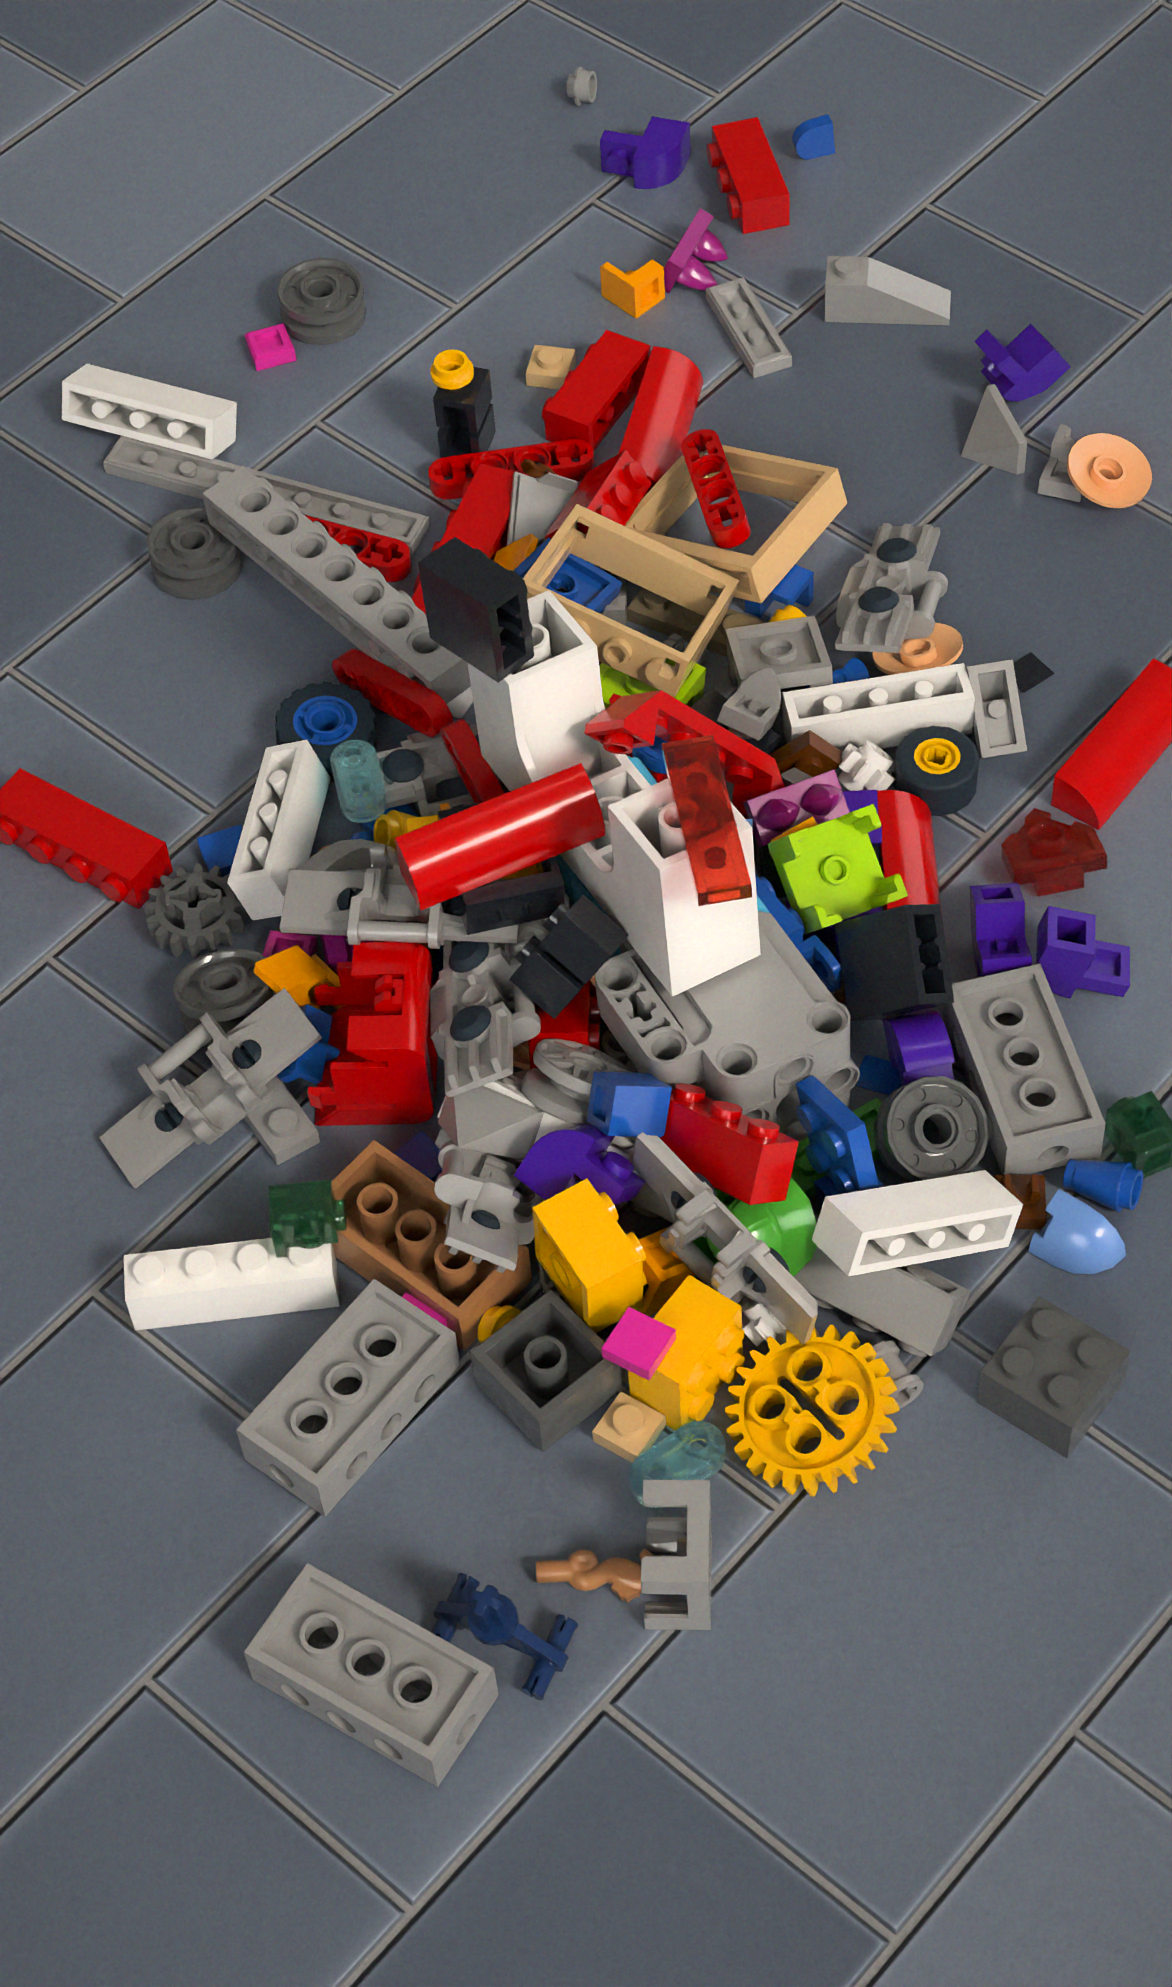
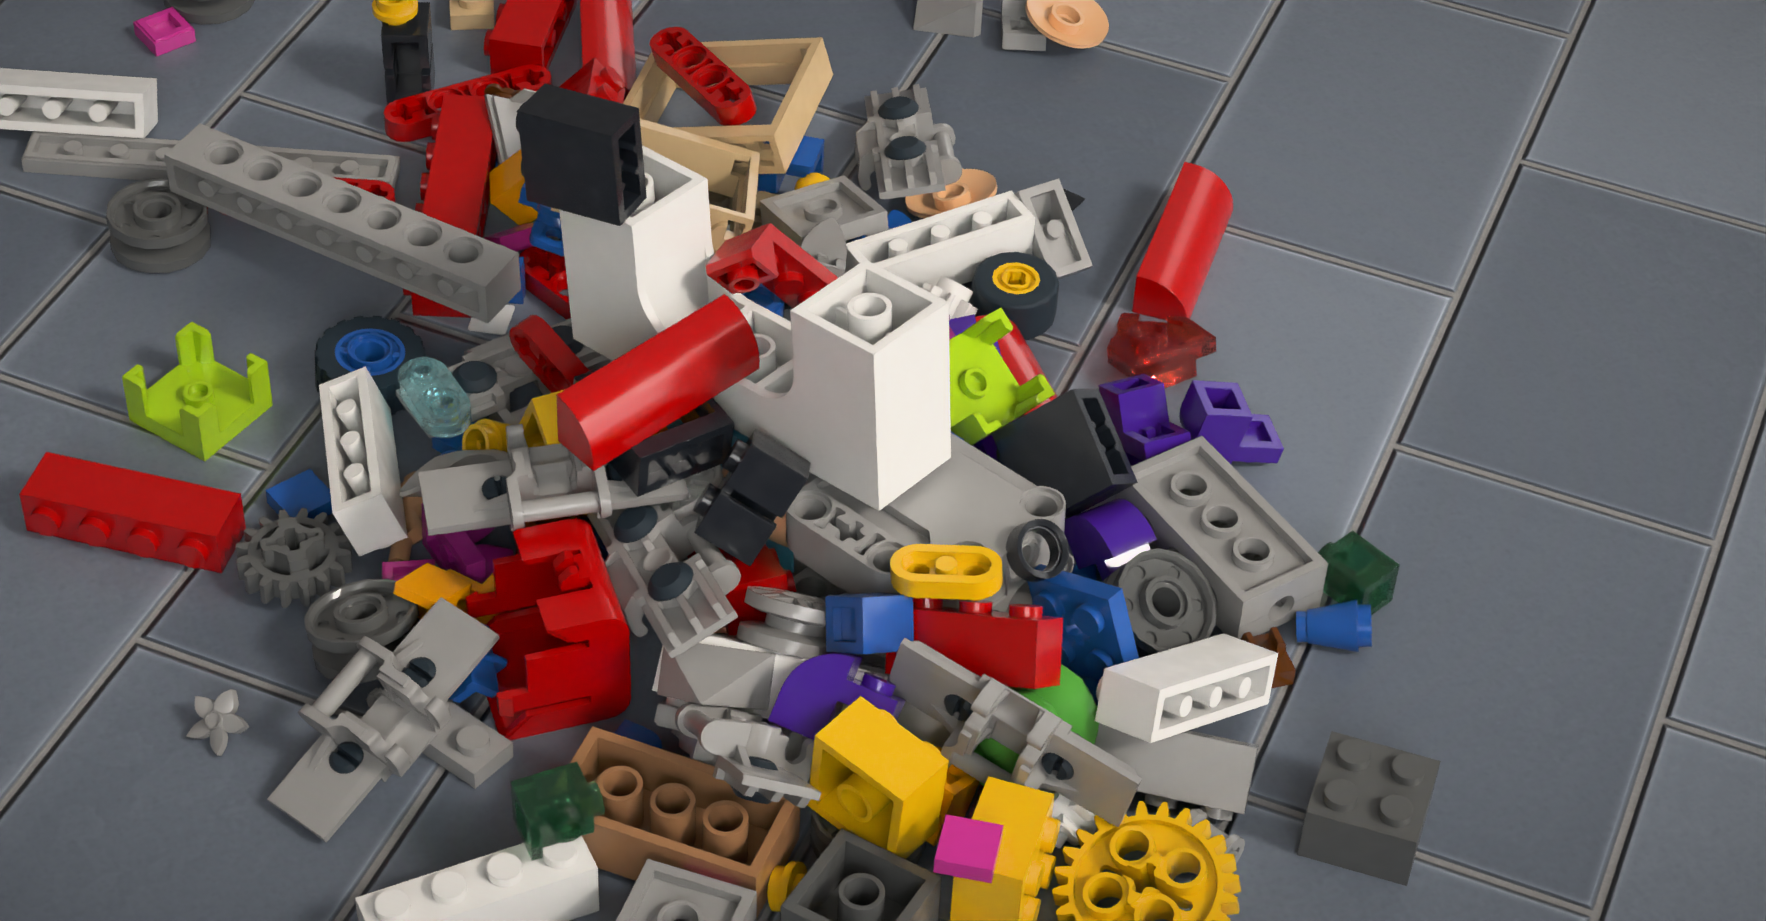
camera: 25 degrees left, 10 degrees down
(82, 1053) = (218, 720): none -> light grey plant
(172, 736) = (199, 400): none -> lime panel
(393, 692) = (479, 317): red beam -> none
(706, 821) = (903, 302): clear red tile -> none
(711, 1074) = (946, 571): none -> yellow plate
(825, 1073) = (1057, 546): none -> black piece
(1077, 1238) = (1332, 679): medium blue brick -> none

